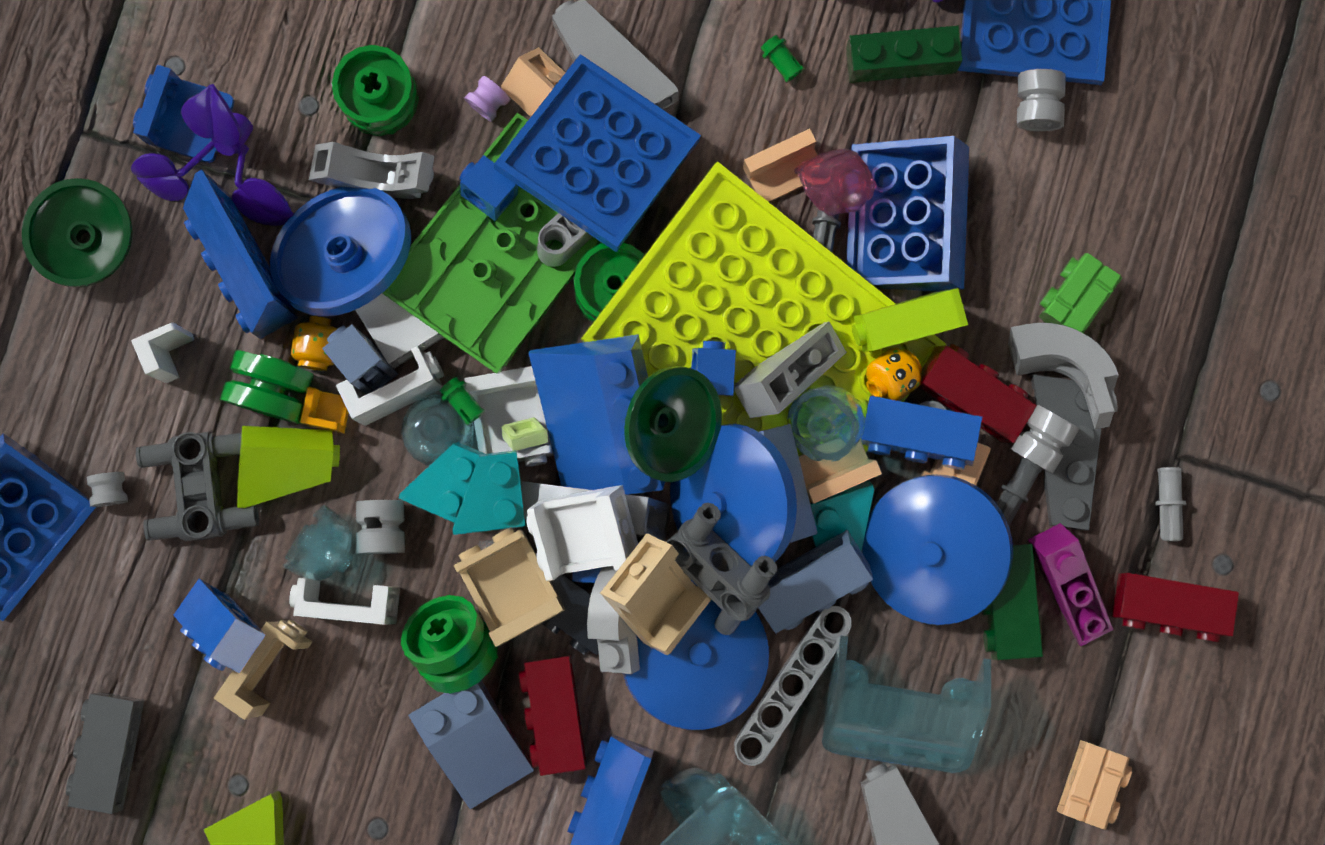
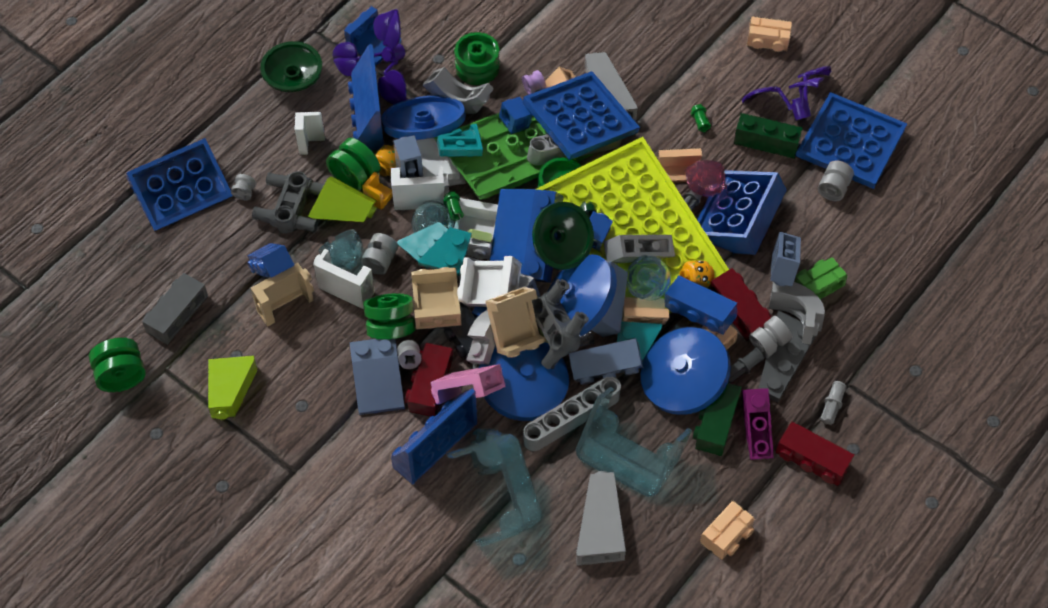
camera: 15 degrees right, 25 degrees down
(427, 287) = (460, 143): none -> teal wing
(508, 698) = (409, 348): none -> light grey wheel
(625, 717) = (484, 380): none -> bright pink panel
(684, 341) = (588, 208): none -> dark green hinge
(909, 320) = (717, 248): lime slope -> none
(1022, 293) = (785, 259): none -> sand blue brick

